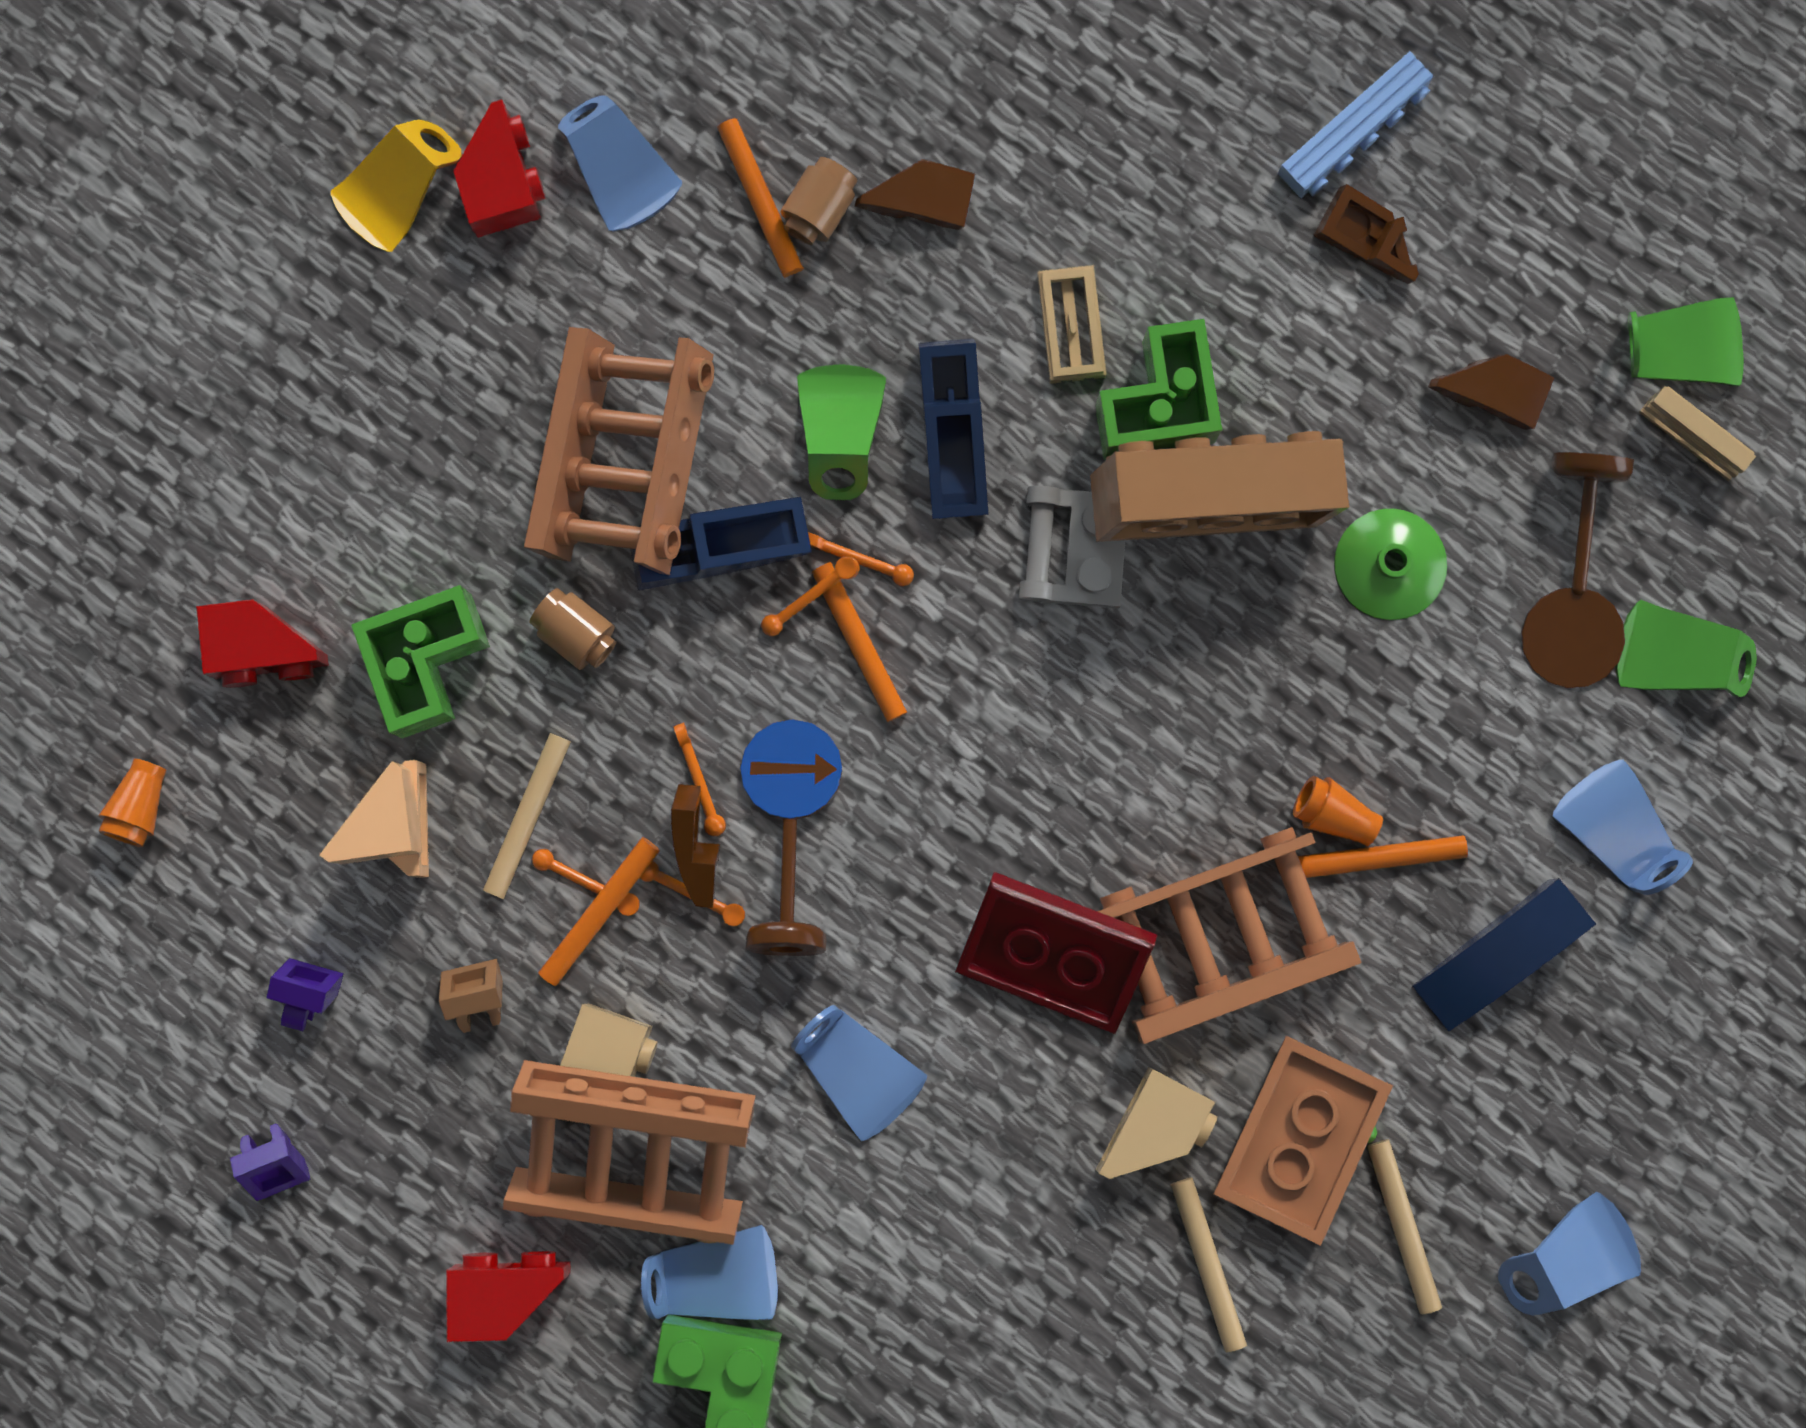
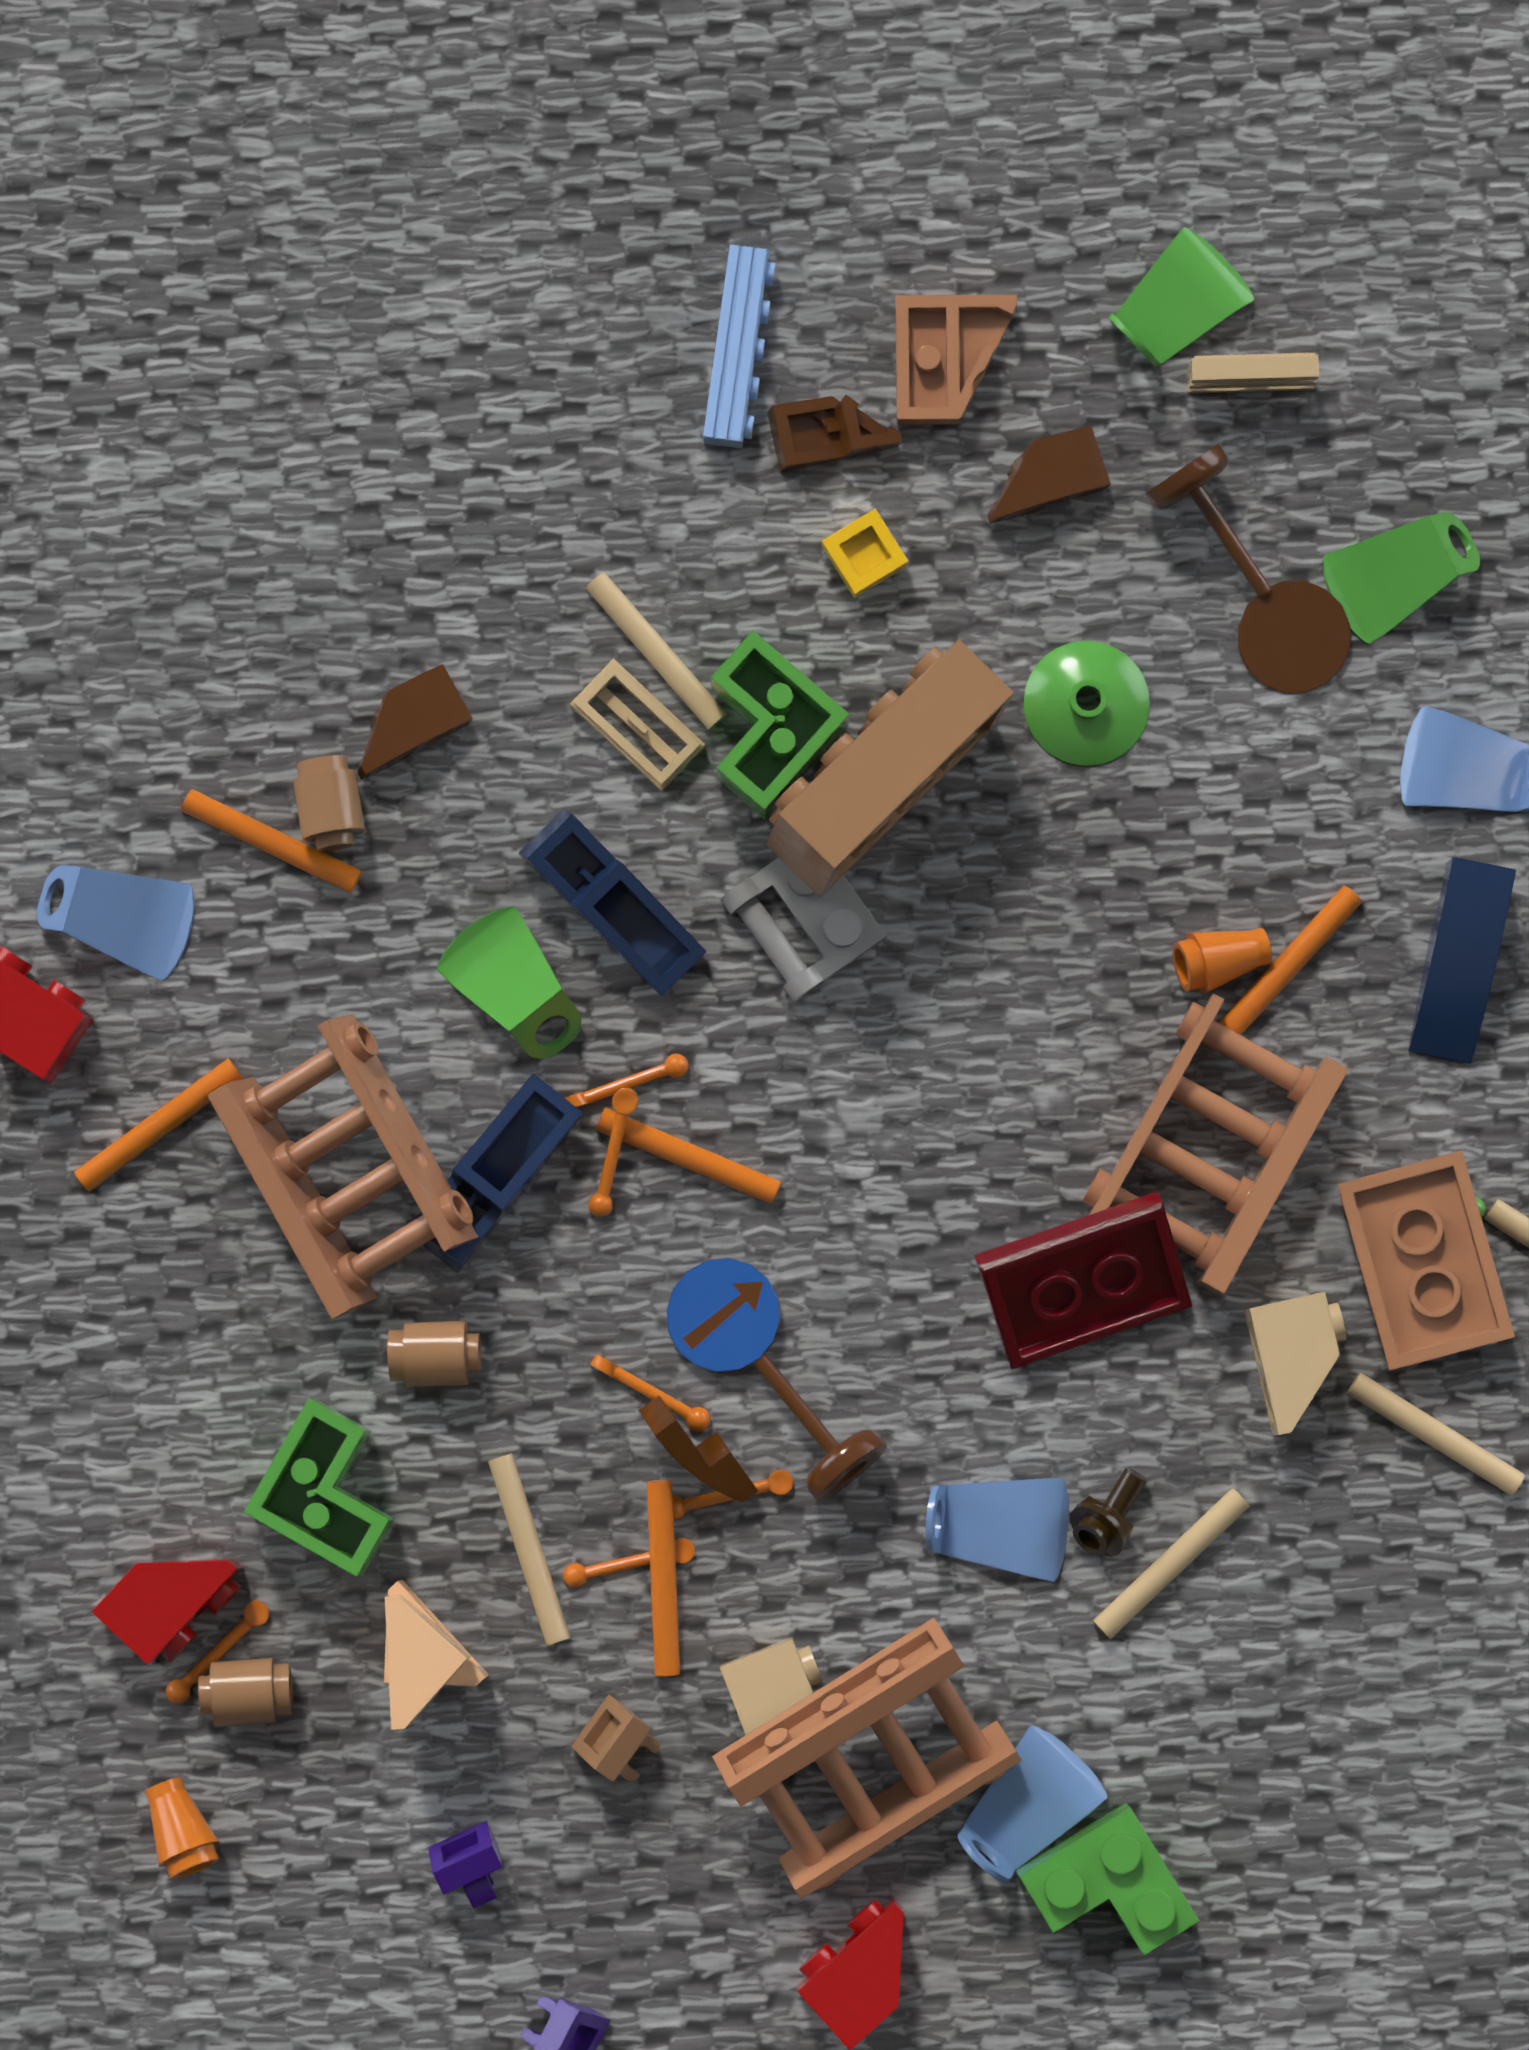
camera: 40 degrees left, 0 degrees up
(256, 750) = (246, 1692): none -> medium nougat brick
(308, 703) = (255, 1614): none -> orange hinge
(518, 322) = (155, 1126): none -> orange bar
(932, 1129) = (1106, 1521): none -> dark brown plate
(951, 1197) = (1171, 1563): none -> tan bar
(1126, 285) = (656, 651): none -> tan bar
(1325, 335) = (865, 553): none -> yellow plate
(1496, 245) = (944, 352): none -> nougat wing

